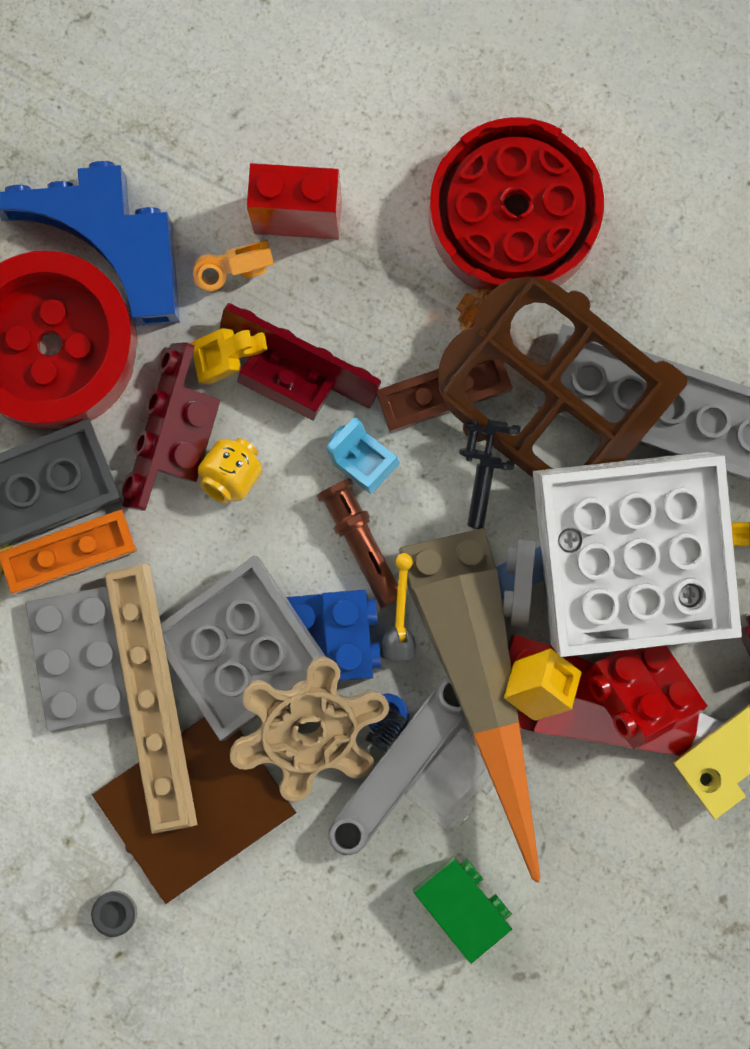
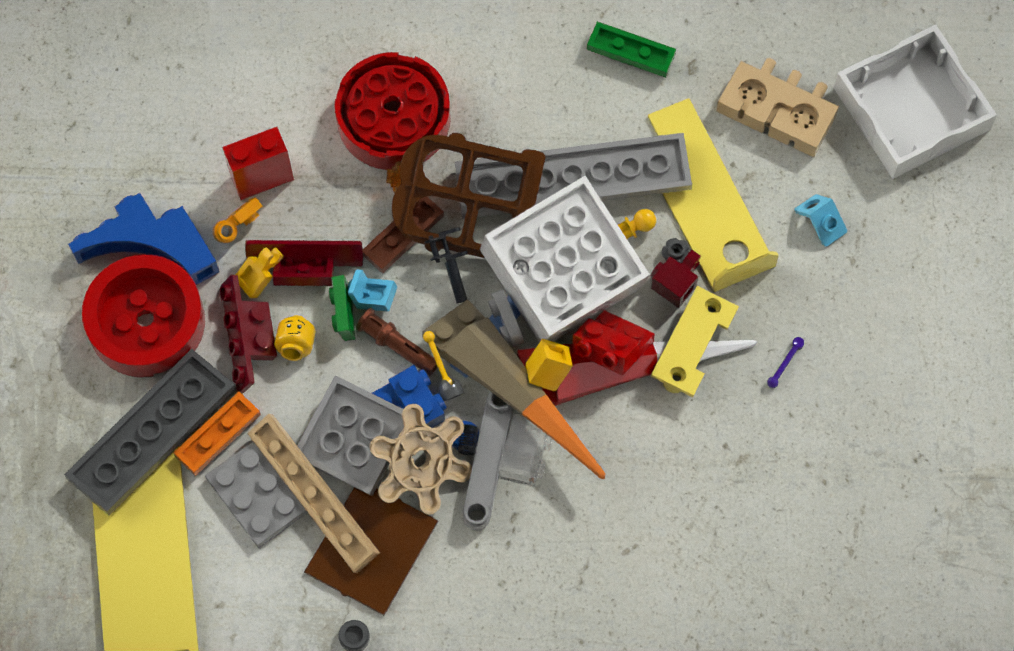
camera: 30 degrees left, 15 degrees down
(305, 477) = (343, 319): none -> green plate
(463, 908) = (569, 522): green brick -> none

